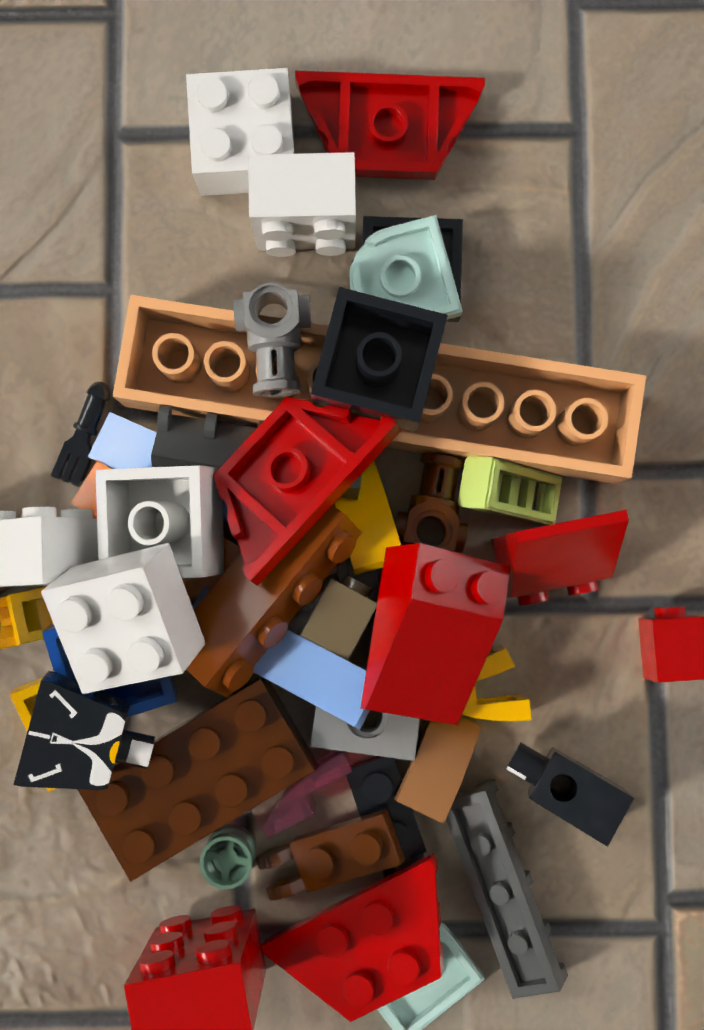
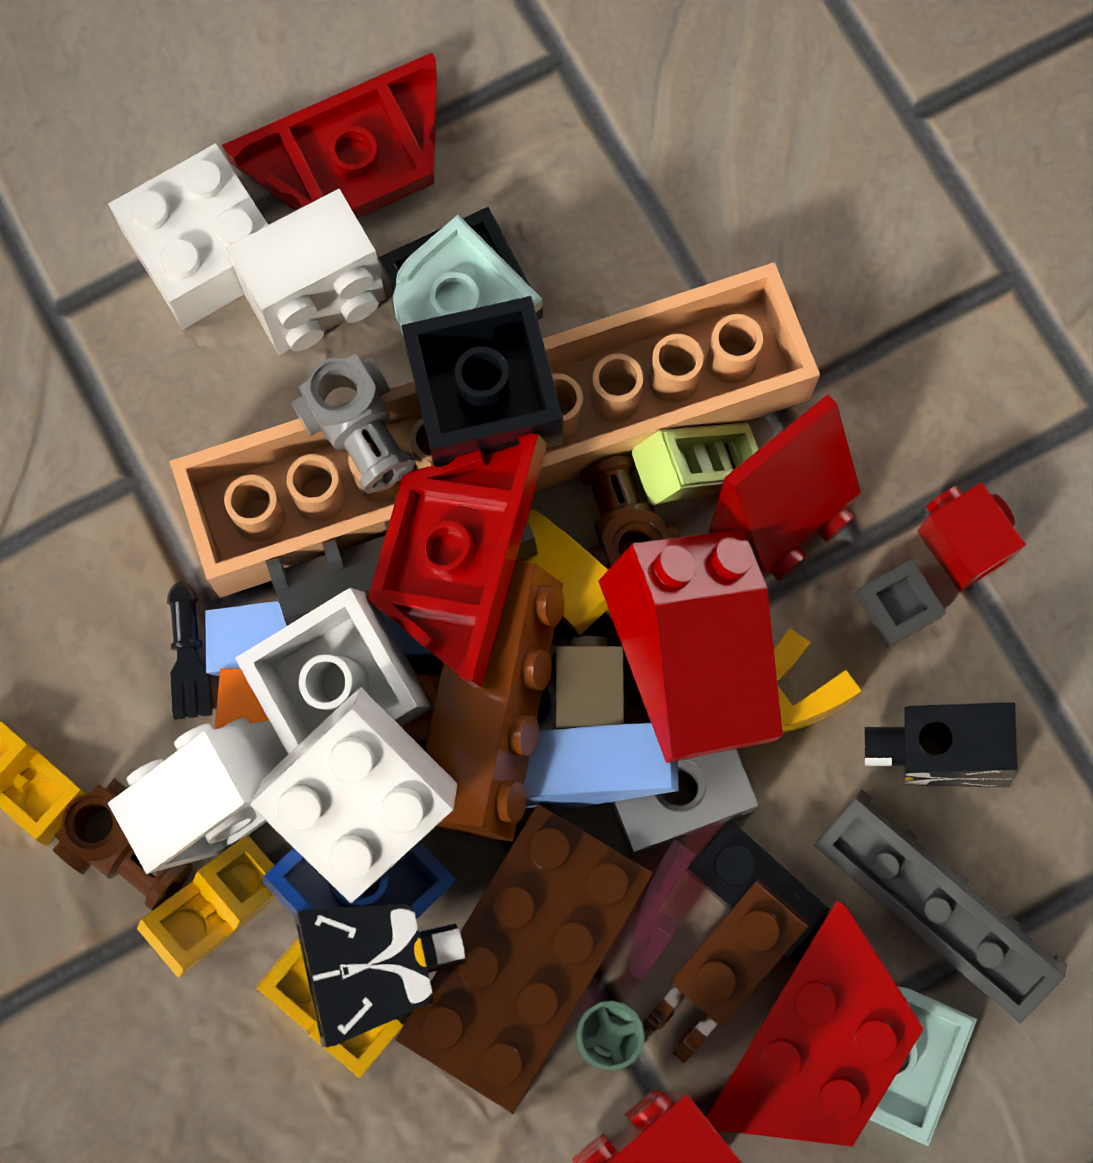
camera: 25 degrees left, 10 degrees down
(438, 767) = (789, 802): medium nougat slope -> none
(596, 666) = (900, 603): none -> dark grey plate

